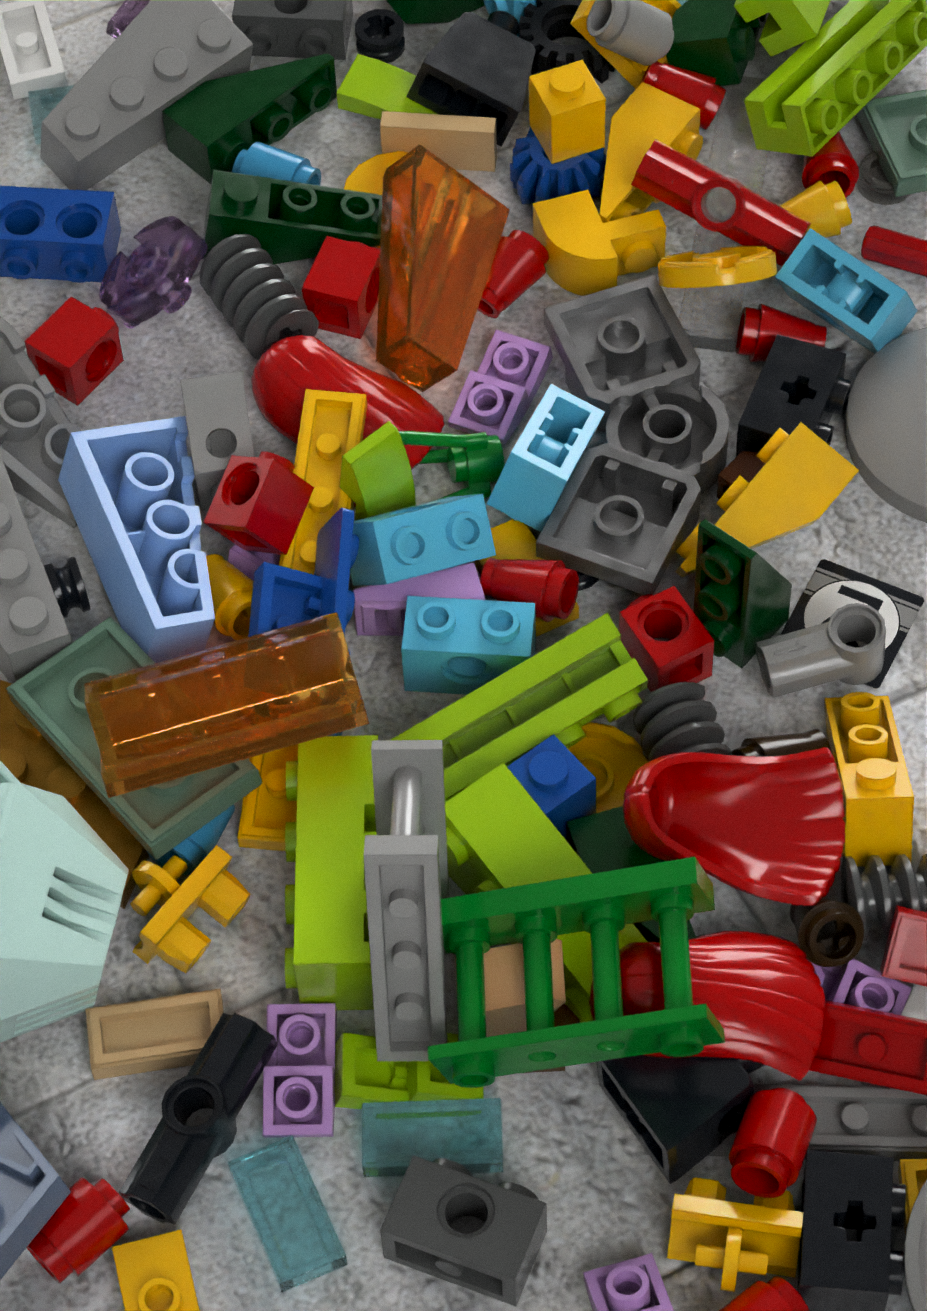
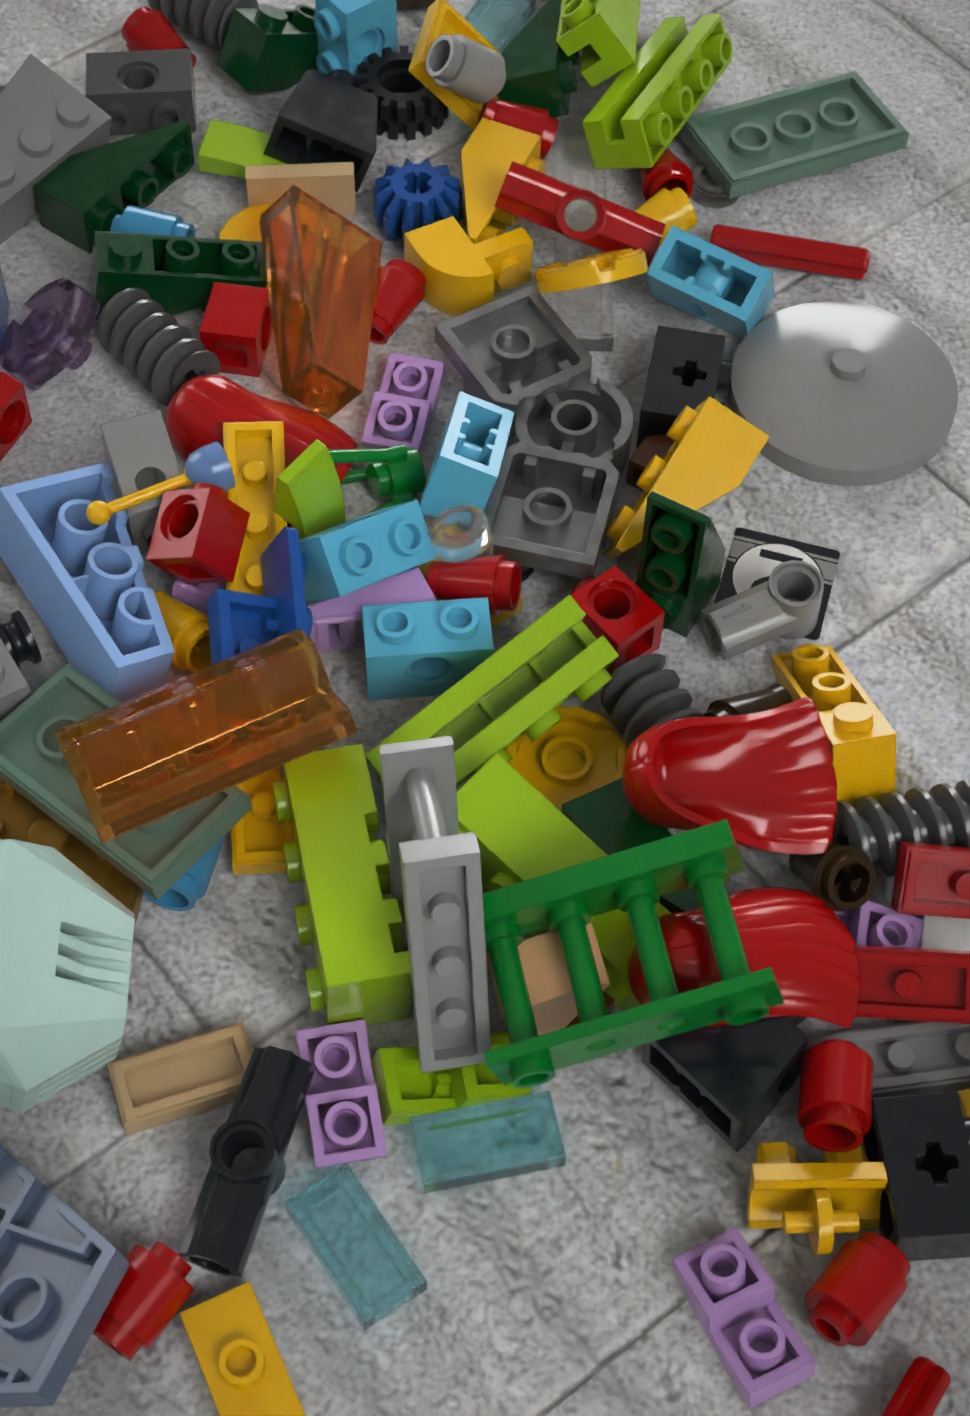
camera: 15 degrees left, 0 degrees up
(168, 931) = (182, 972): yellow hips -> none
(274, 435) = (204, 465): none -> hinge
(382, 23) = (226, 102): black bush -> none
(486, 1261) = (571, 1265): dark grey brick -> none
(522, 535) = (461, 534): none -> clear tile
(556, 782) = (549, 764): blue brick -> none
(567, 111) = (423, 145): yellow brick -> none
(761, 325) = (637, 326): red cone -> none

